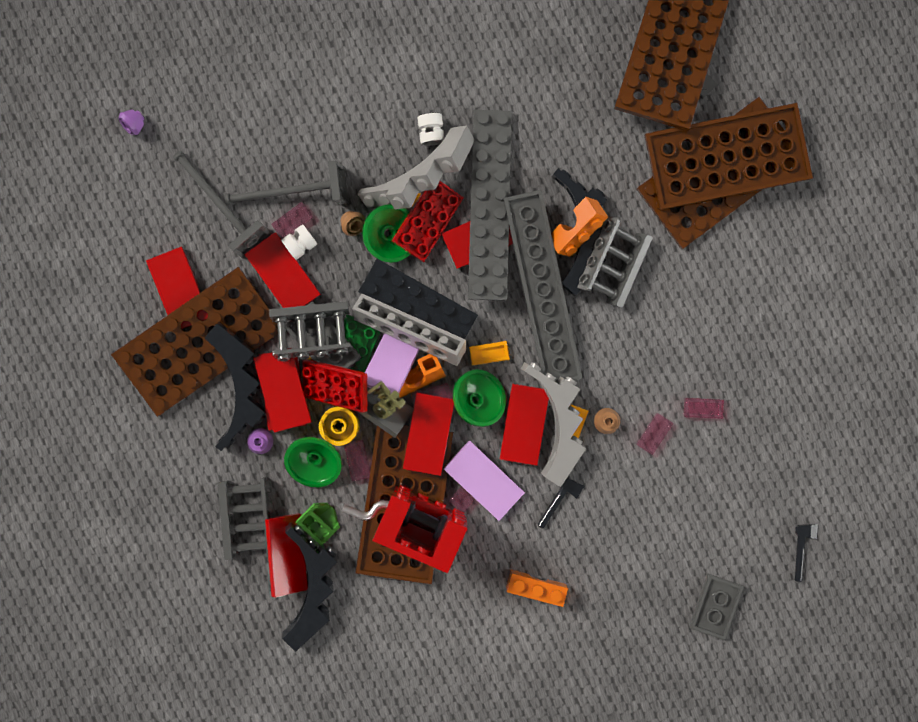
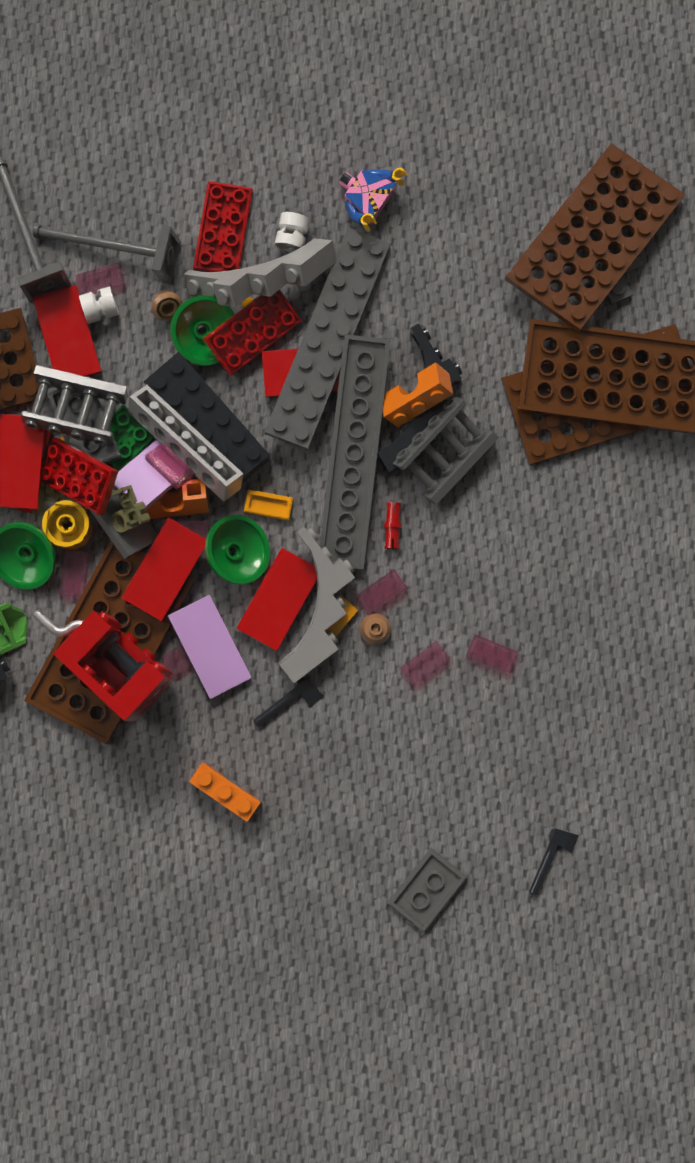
camera: 20 degrees right, 5 degrees down
(374, 145) = (222, 227): none -> red tile
(403, 352) = (169, 466): none -> clear pink tile
(481, 76) = (369, 193): none -> torso
(592, 335) = (392, 525): none -> red pin
(601, 390) = (381, 591): none -> clear pink tile

